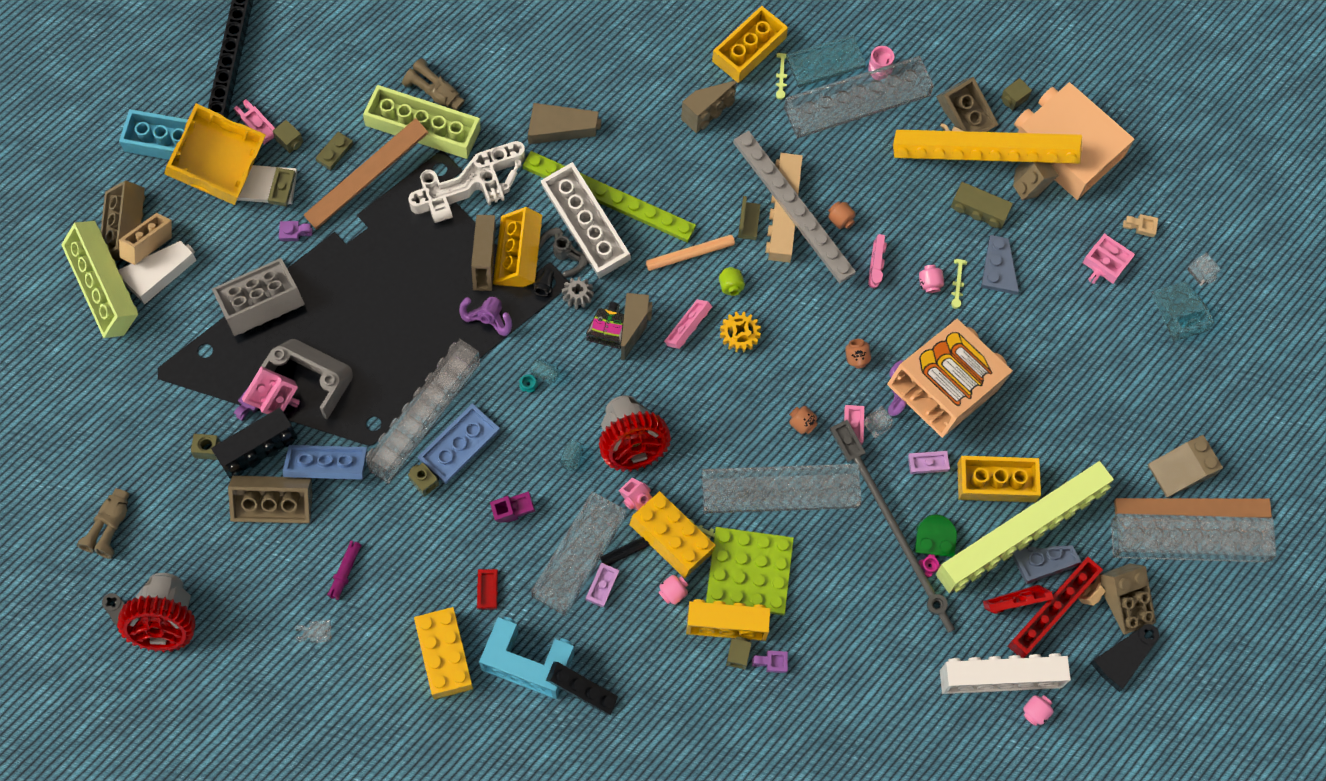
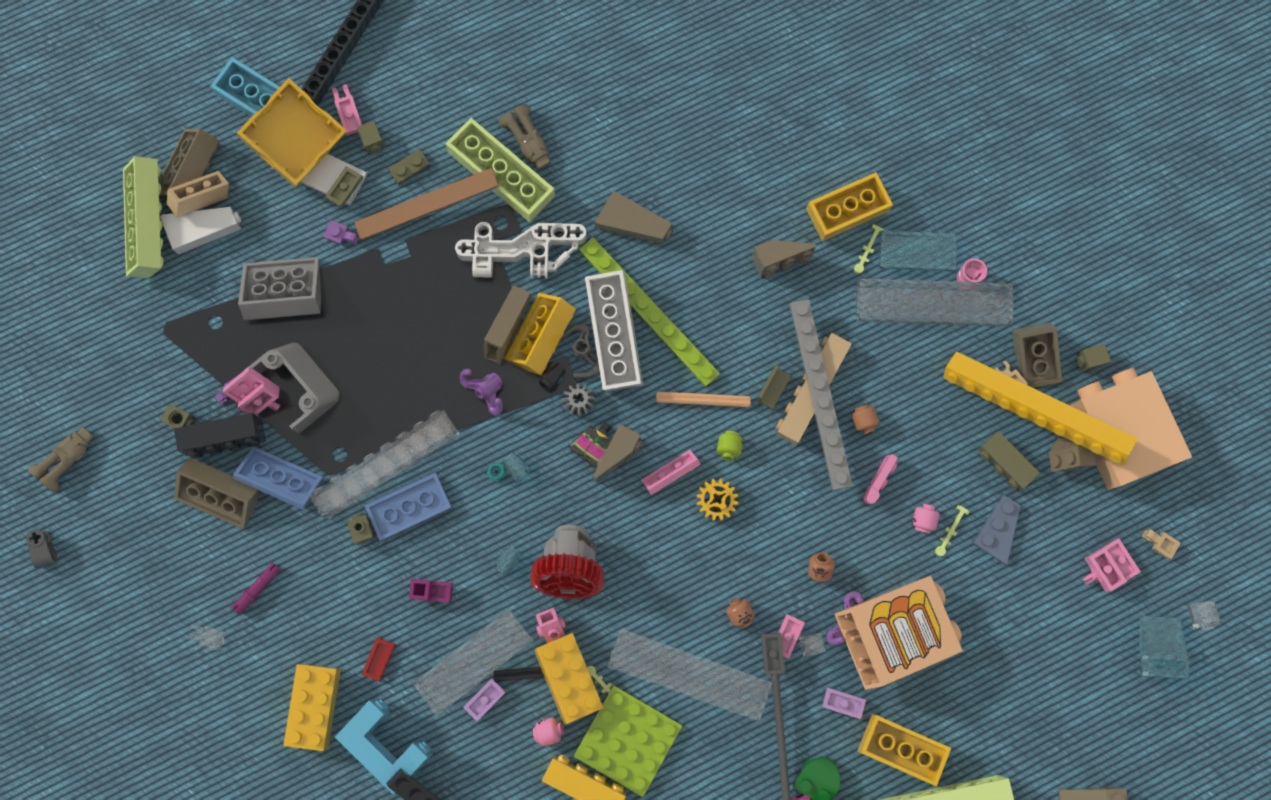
camera: 25 degrees right, 10 degrees up
(158, 615) = (70, 568): red piece -> none

